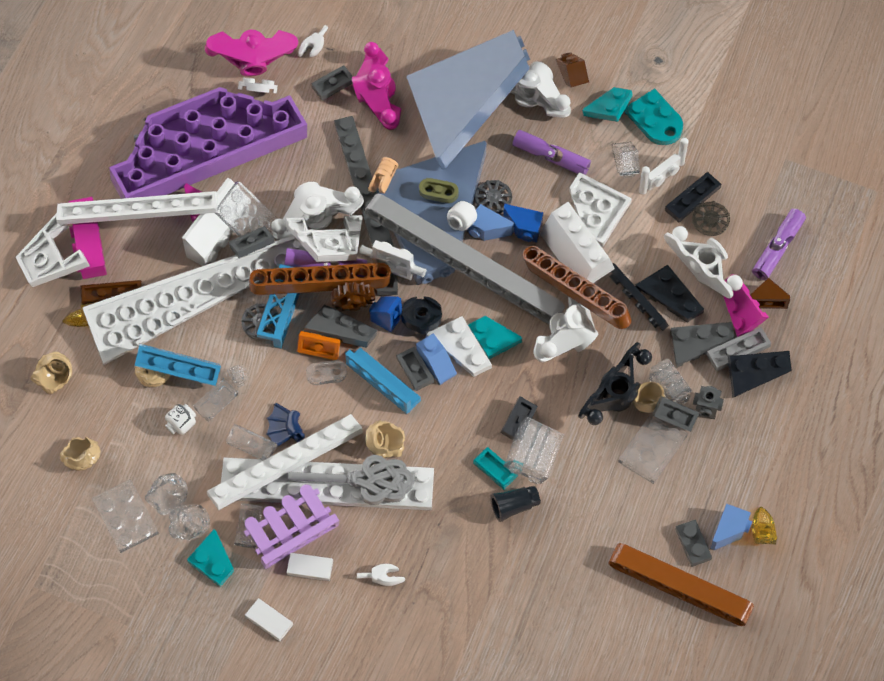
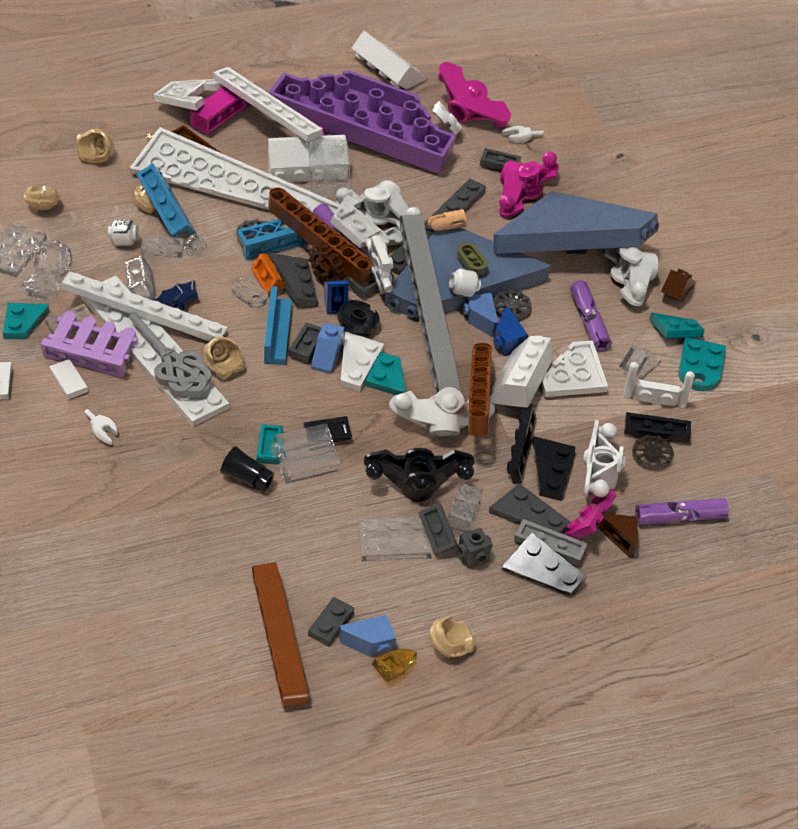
camera: 45 degrees right, 15 degrees down
(141, 74) = (387, 61): none -> white slope
(251, 242) = (315, 185): dark grey plate -> none
(648, 396) = (436, 496): tan hair -> none
(773, 475) = (451, 637): none -> tan hair

